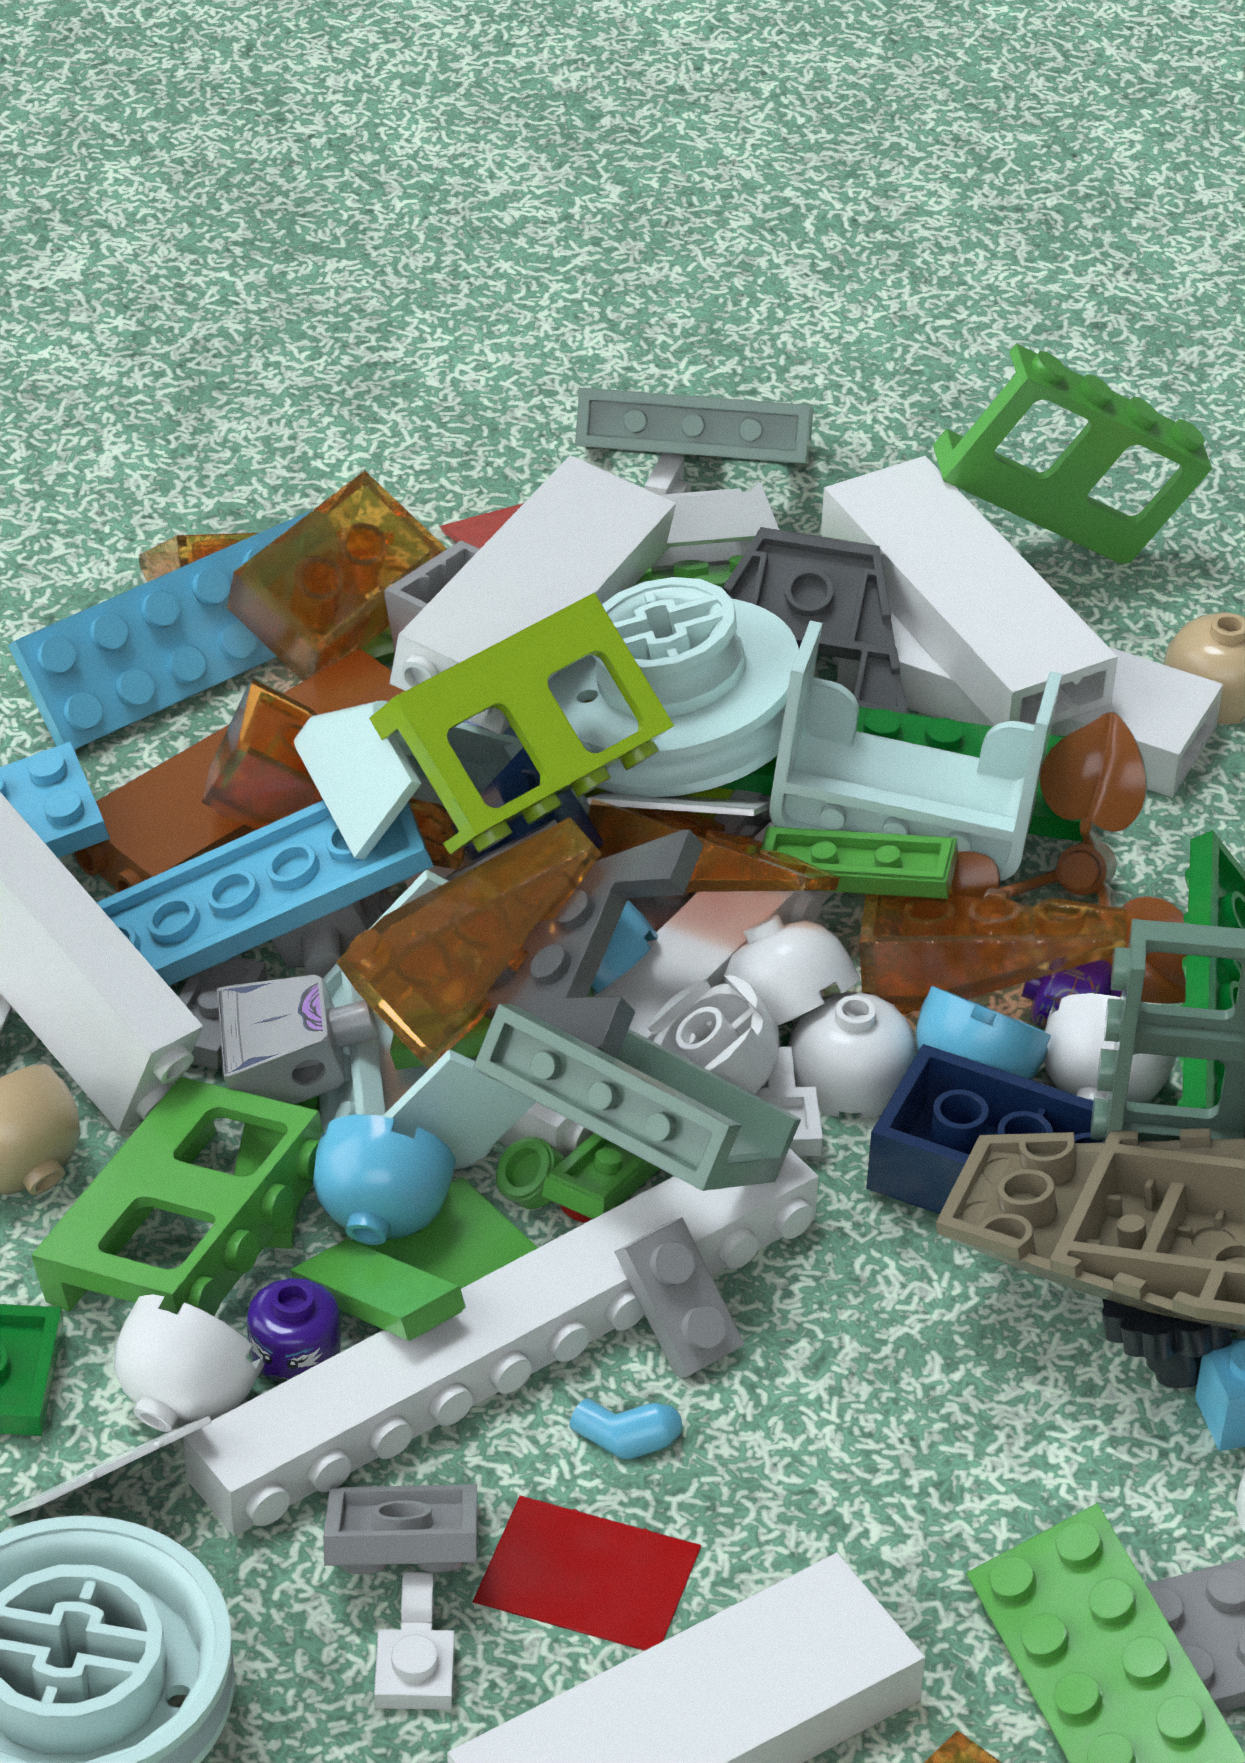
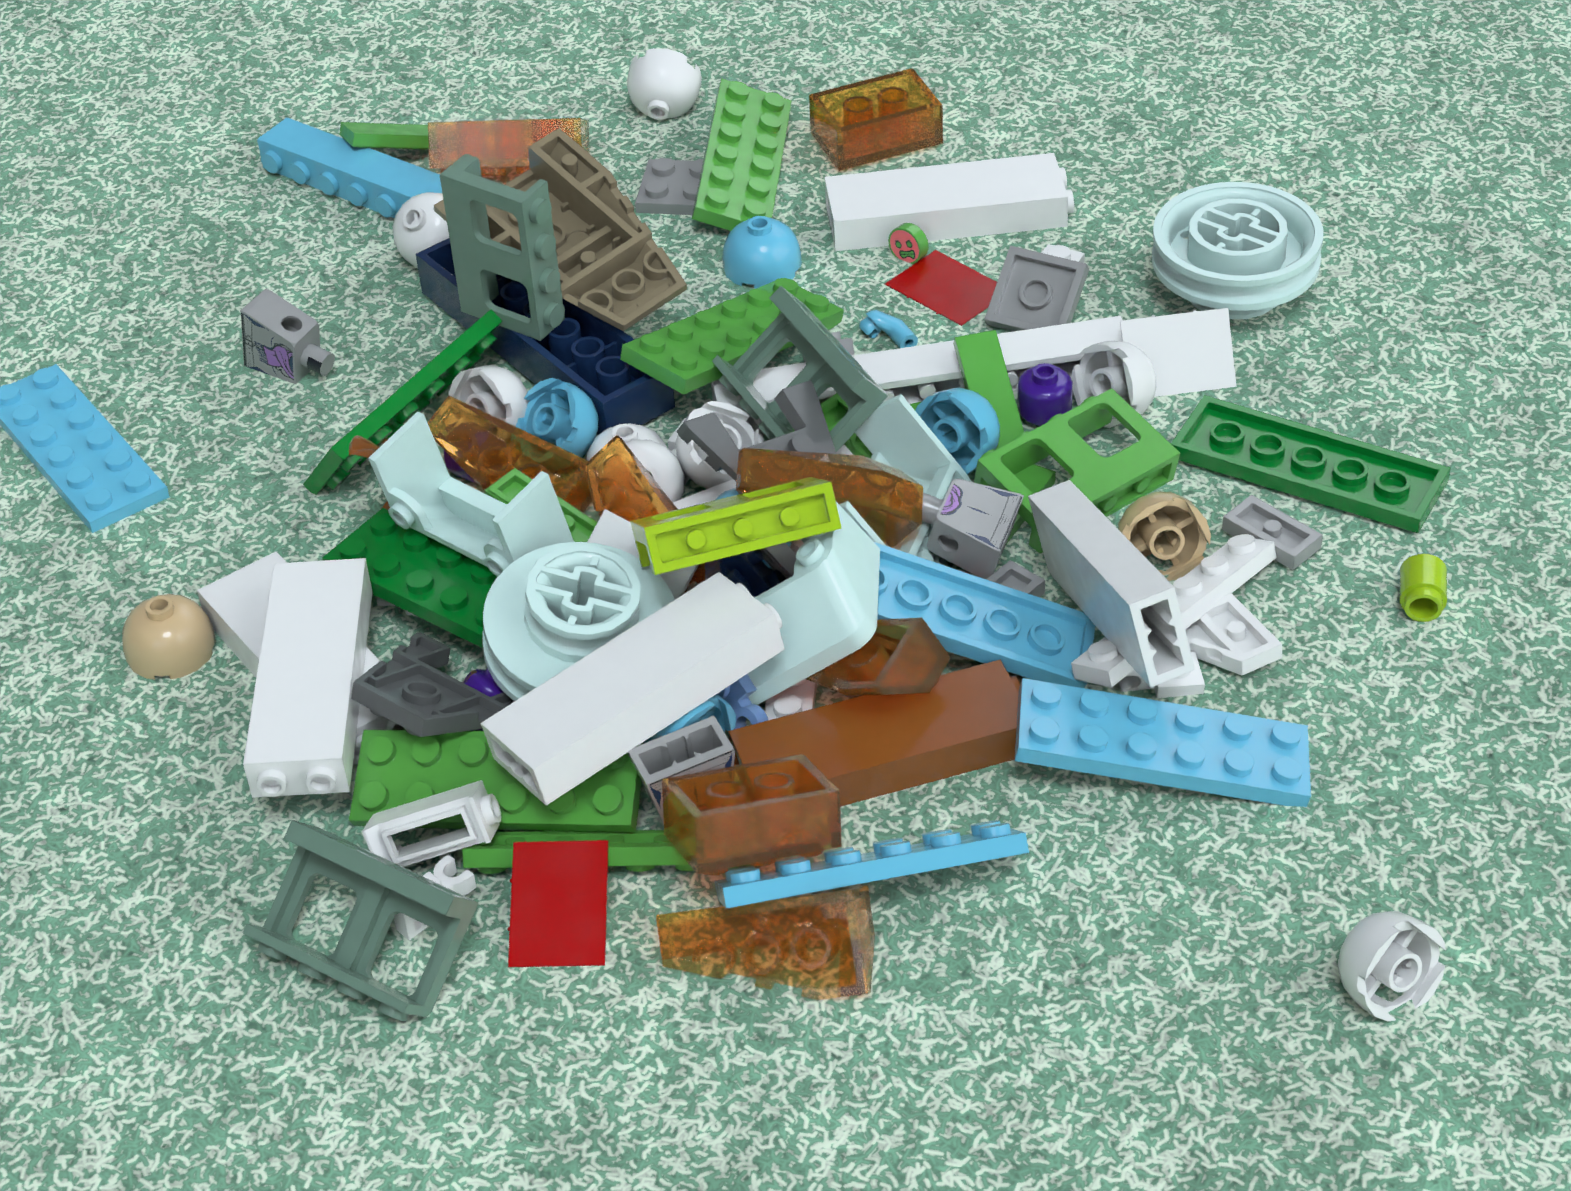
camera: 150 degrees left, 0 degrees up
(692, 1599) = (908, 243): none -> tile
(836, 1267) = (685, 349): none -> bright green plate
(938, 1506) = (760, 252): none -> medium azure cylinder
(1060, 494) = (170, 741): bright green window -> none

